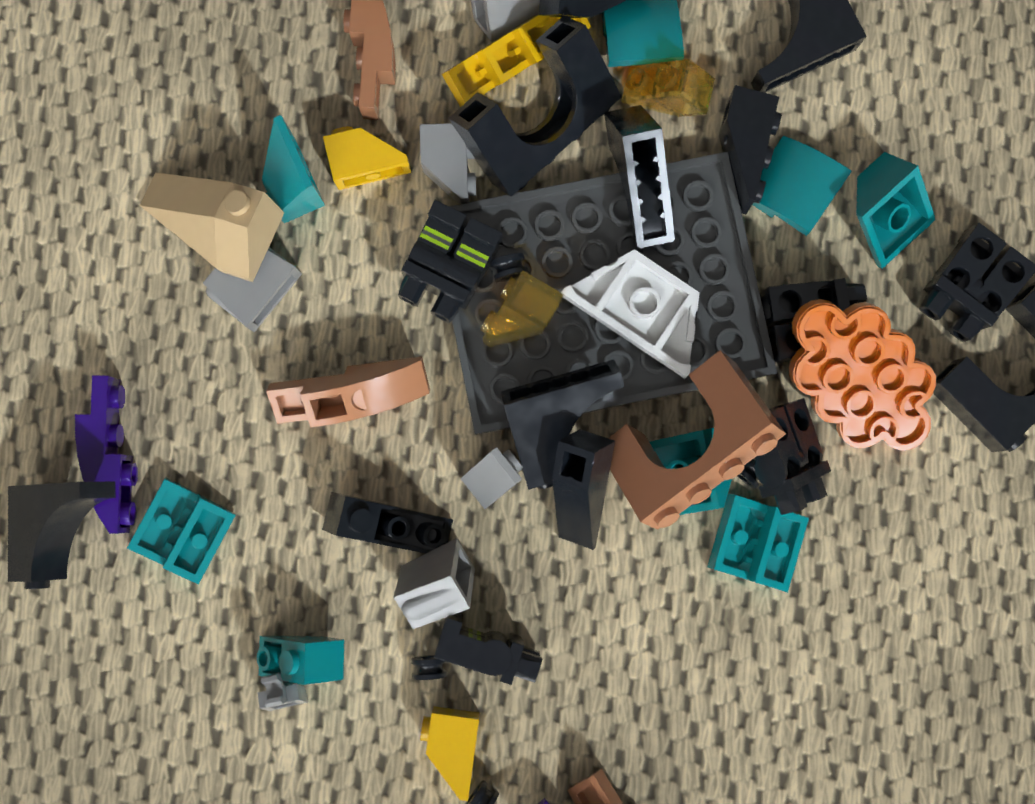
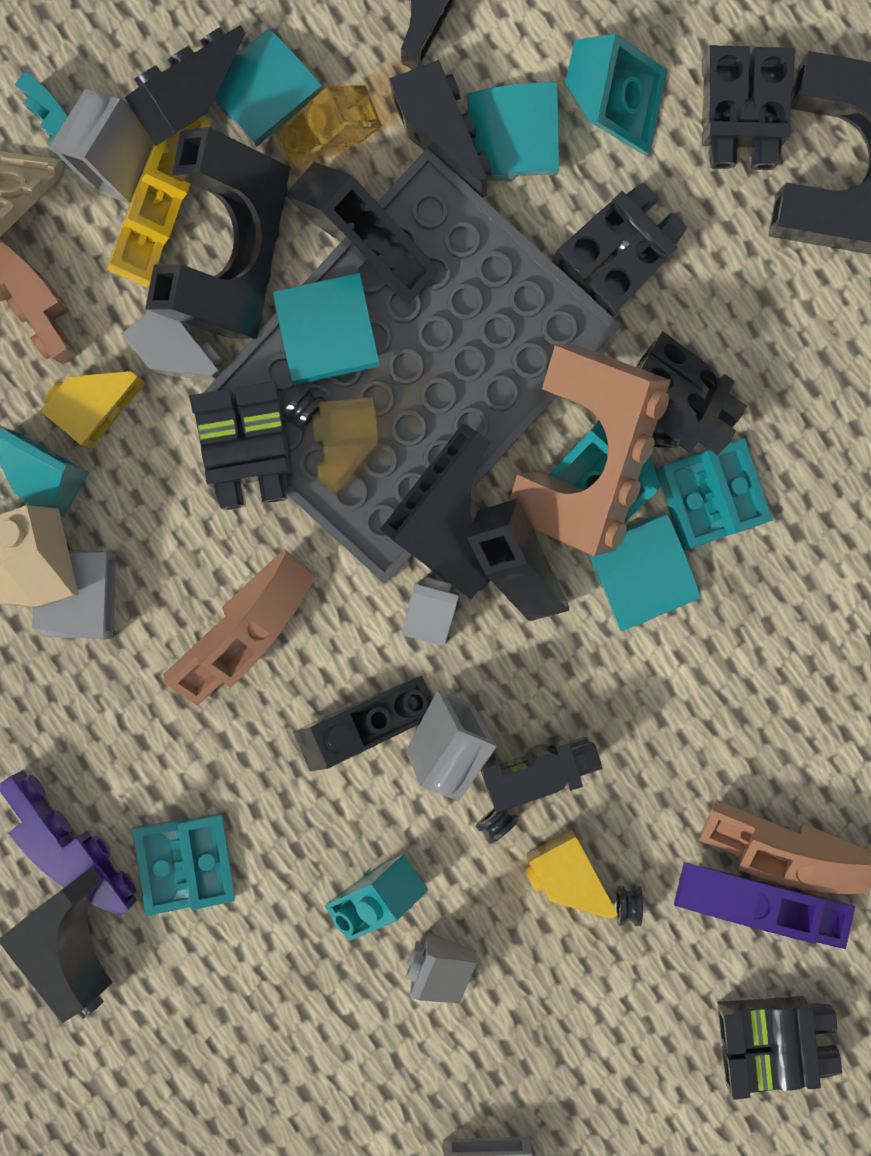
camera: 30 degrees left, 5 degrees up
(280, 693) = (381, 942): light grey plate -> none
(307, 745) = (439, 969): none -> light grey slope
(565, 224) = (326, 329): none -> teal slope
(643, 307) = (453, 354): white wing -> none
(668, 563) = (646, 573): none -> teal slope
(861, 374) = (700, 270): orange plate -> none

